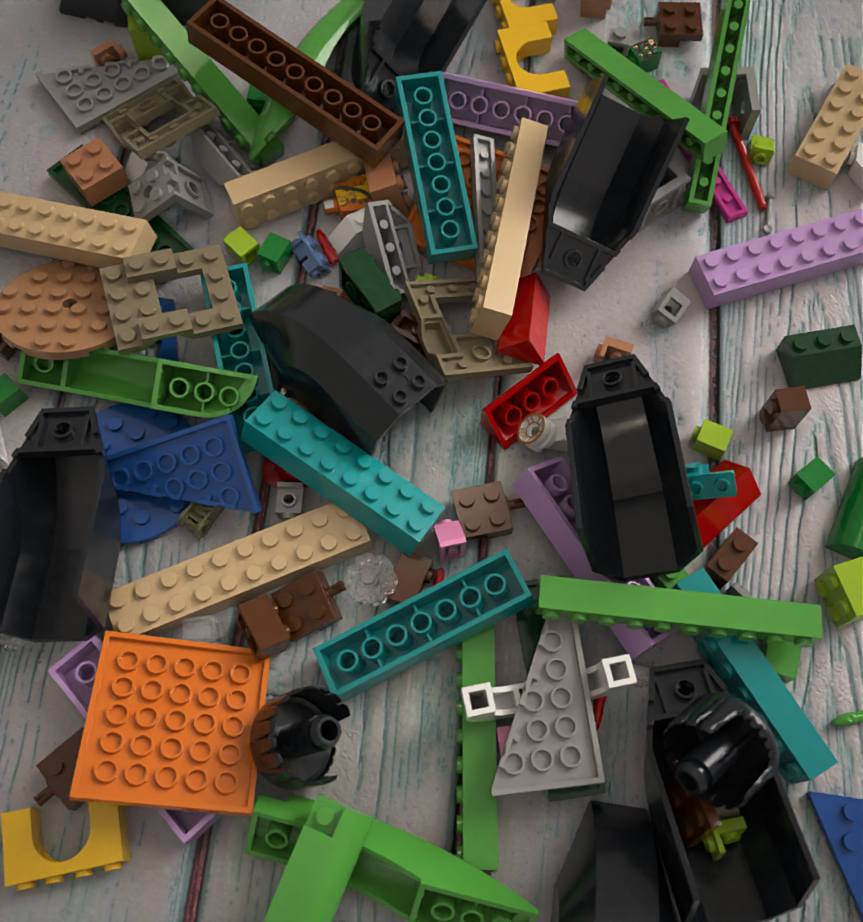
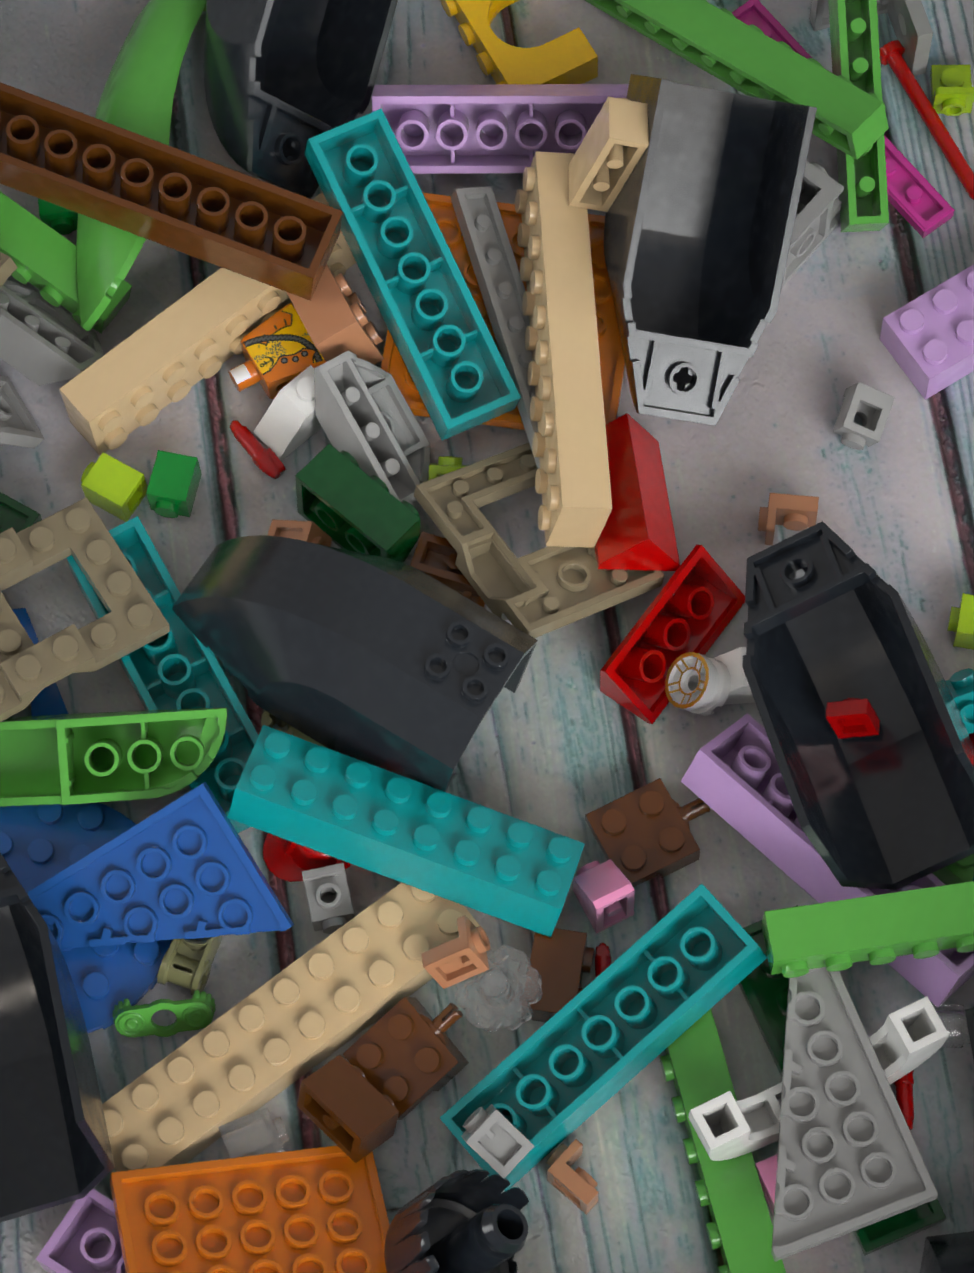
camera: 10 degrees left, 0 degrees up
(189, 547) = (190, 1015): none -> bright green piece
(316, 261) = (247, 480): medium blue hinge -> none
(340, 672) = (495, 1139): none -> light grey bracket
(352, 555) = (460, 957): none -> nougat bracket
(385, 710) = (575, 1185): none -> nougat bracket
(562, 120) = (608, 154): none -> tan brick
(623, 473) = (852, 718): none -> red plate

